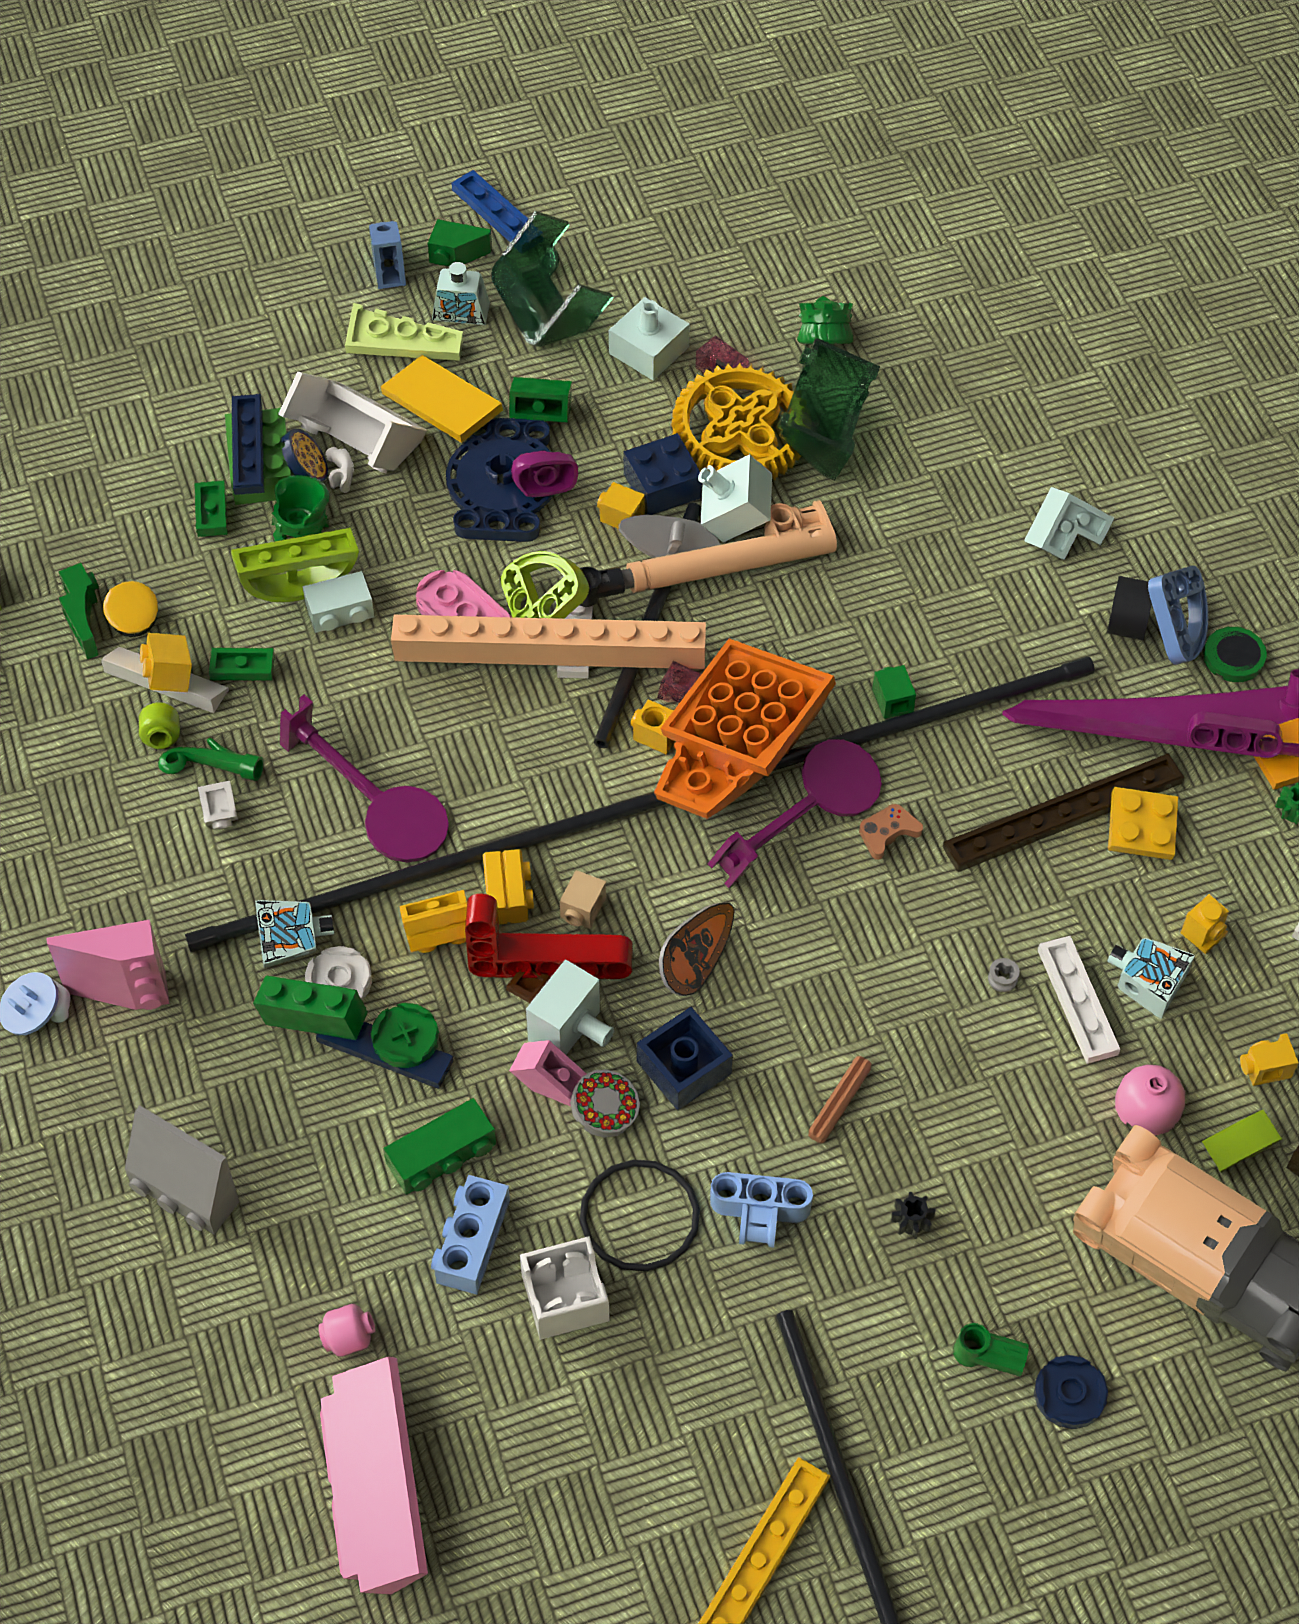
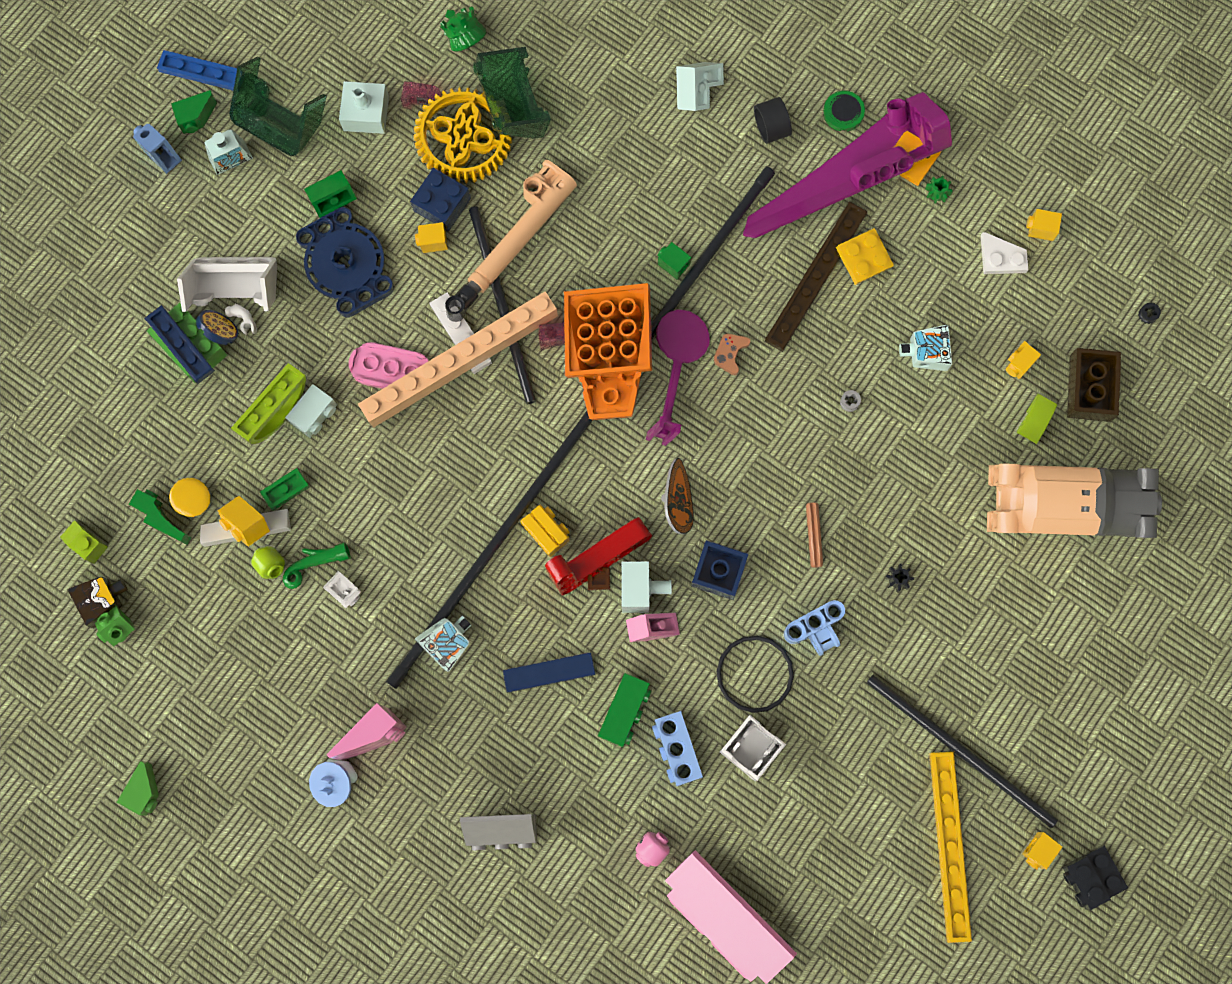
camera: 30 degrees left, 20 degrees up
(210, 508) = (184, 397): green plate -> none
(300, 507) = (241, 364): green hair -> none
(310, 1007) = (494, 680): green brick -> none
(340, 968) = (491, 647): white tile -> none
(389, 336) = (200, 205): yellowish green wing -> none
(400, 822) = (455, 527): magenta piece -> none
(405, 1035) = (556, 659): green tile -> none
(435, 921) = (524, 579): yellow brick -> none
(441, 398) = (268, 230): yellow tile -> none
(544, 473) = (373, 246): magenta piece -> none
(567, 593) = (434, 341): lime beam -> none
(582, 899) = (594, 510): tan brick -> none
(605, 1103) = (693, 624): tile -> none
(648, 735) = (548, 365): yellow brick -> none
(665, 535) = (476, 241): light grey shield -> none
(735, 497) = (499, 191): light aqua brick -> none
(993, 1351) = (989, 627): green piece -> none
(1070, 1392) = (1040, 620): dark blue tile -> none
(1078, 999) = (900, 389): white plate -> none
(1150, 1099) = (974, 425): bright pink cylinder -> none
(1180, 642) = (807, 116): medium blue beam -> none
(1206, 924) = (938, 299): yellow brick -> none

